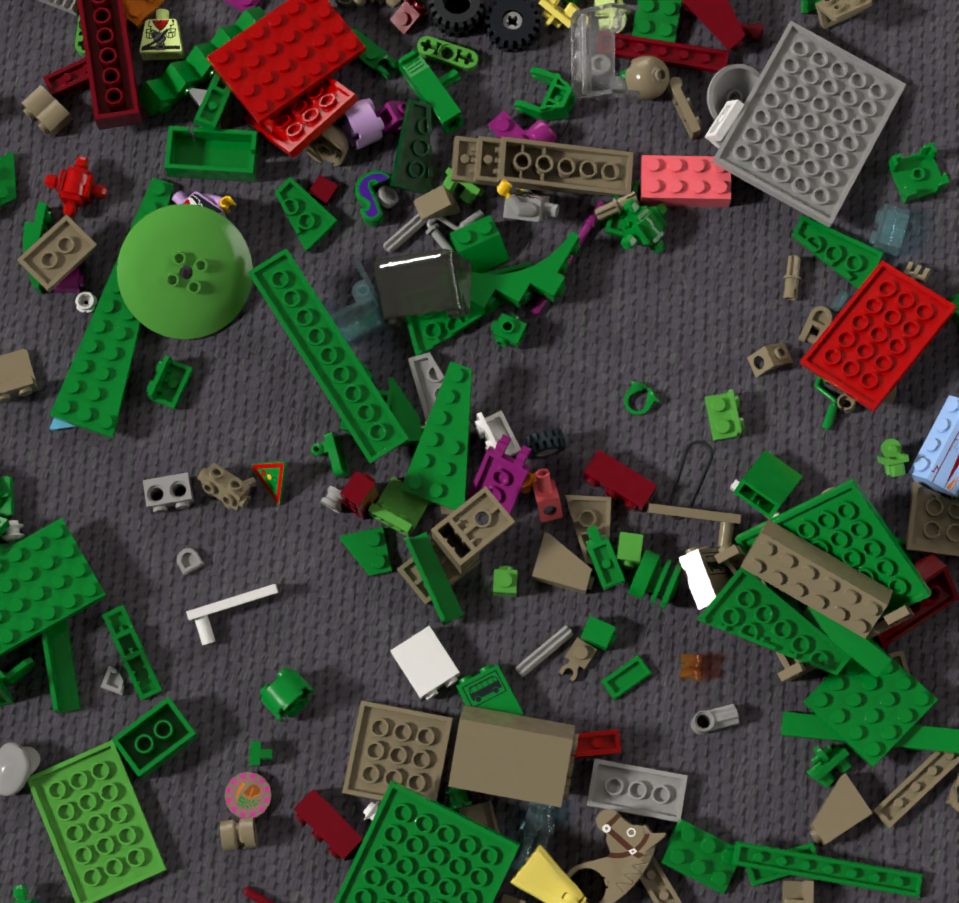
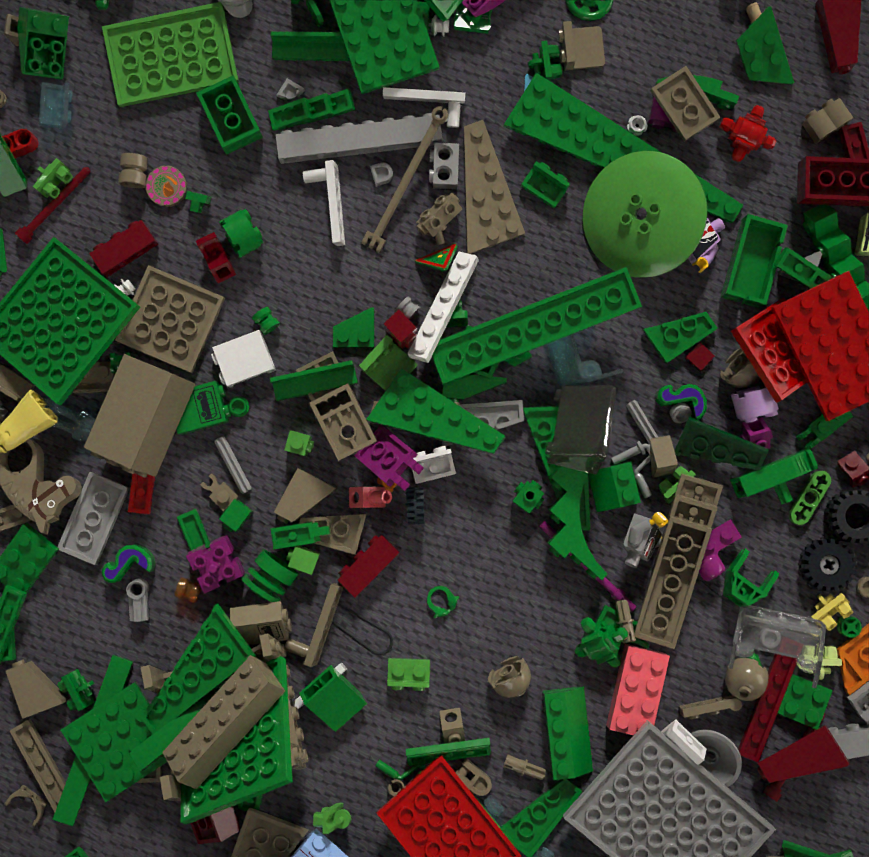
camera: 95 degrees right, 10 degrees up
(24, 411) = (546, 52): none -> green hips
(93, 499) = (453, 99): none -> white piece
(155, 591) = (354, 139): none -> light grey brick
(199, 439) = (489, 204): none -> dark tan wing
(261, 550) = (376, 236): none -> dark tan hinge
(319, 717) = (216, 257): none -> dark red brick
(324, 457) = (443, 307): none -> white plate
(382, 645) = (265, 320): none -> green wheel
(478, 658) = (238, 406): none -> green plate
(655, 642) = (215, 563): none -> magenta brick
(675, 744) = (124, 559): none -> green animal
(702, 304) = (512, 678): none -> dark tan cylinder
(745, 243) = (567, 732): none -> green slope
(793, 354) = (449, 751): none -> green tile

